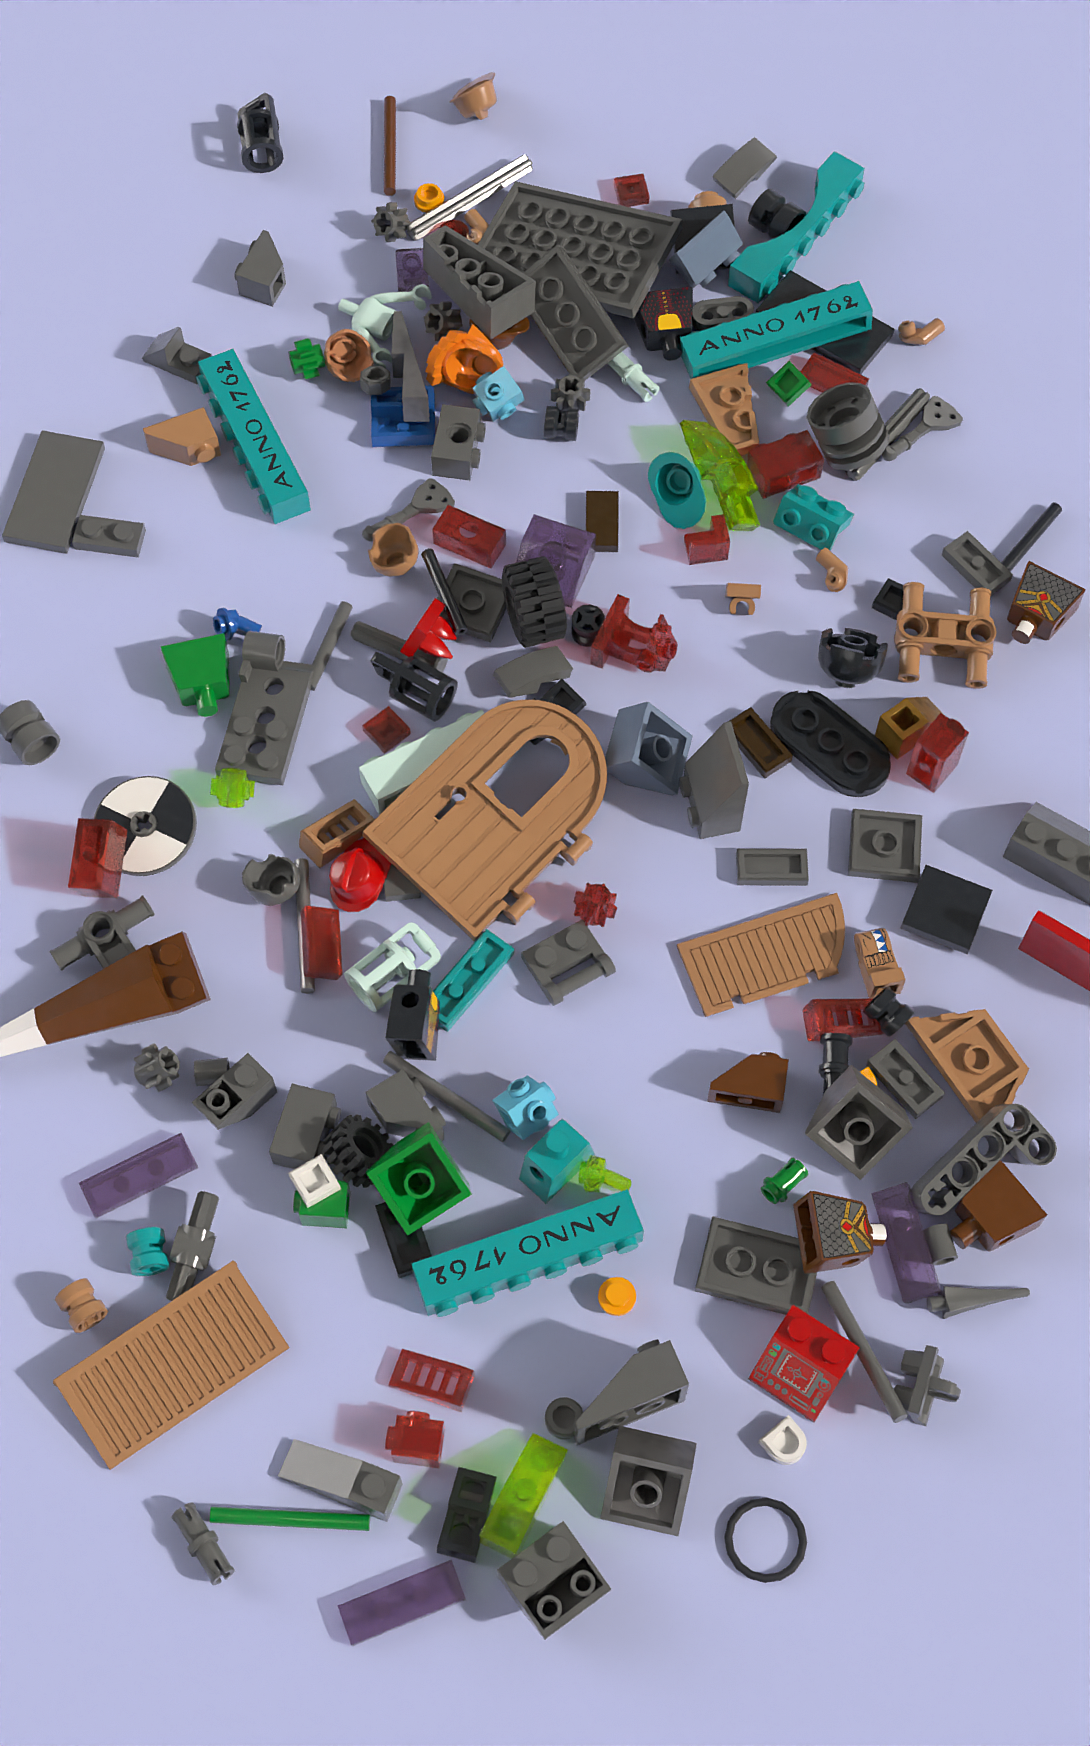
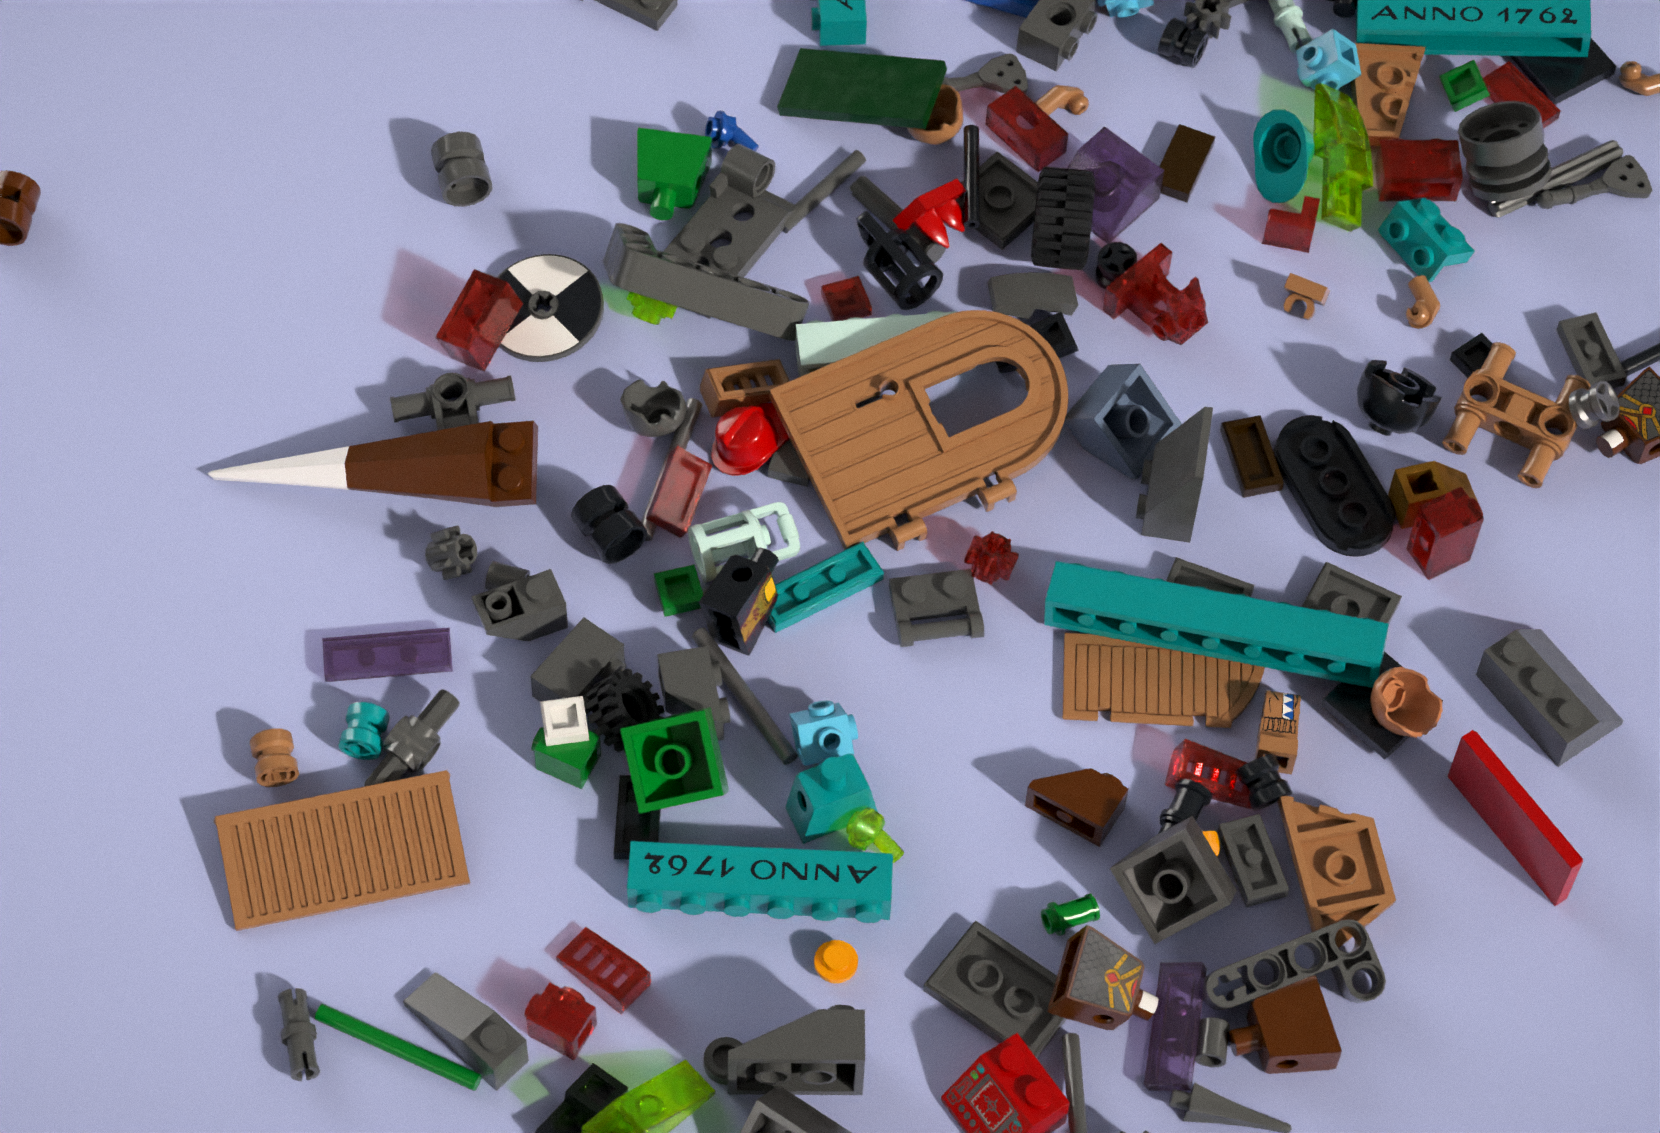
camera: 20 degrees right, 5 degrees down
(265, 766) = (642, 269): none -> dark grey beam
(281, 995) = (612, 527): none -> black wheel
(327, 549) = (862, 88): none -> dark green tile
(357, 1027) = (678, 590): none -> green plate
(488, 500) = (1064, 98): none -> medium nougat arm
(680, 400) = (1328, 60): none -> medium azure brick
(795, 894) = (1215, 624): none -> teal brick
(970, 905) = (1405, 702): none -> nougat hair
(1004, 607) = (1594, 404): none -> flat silver wheel

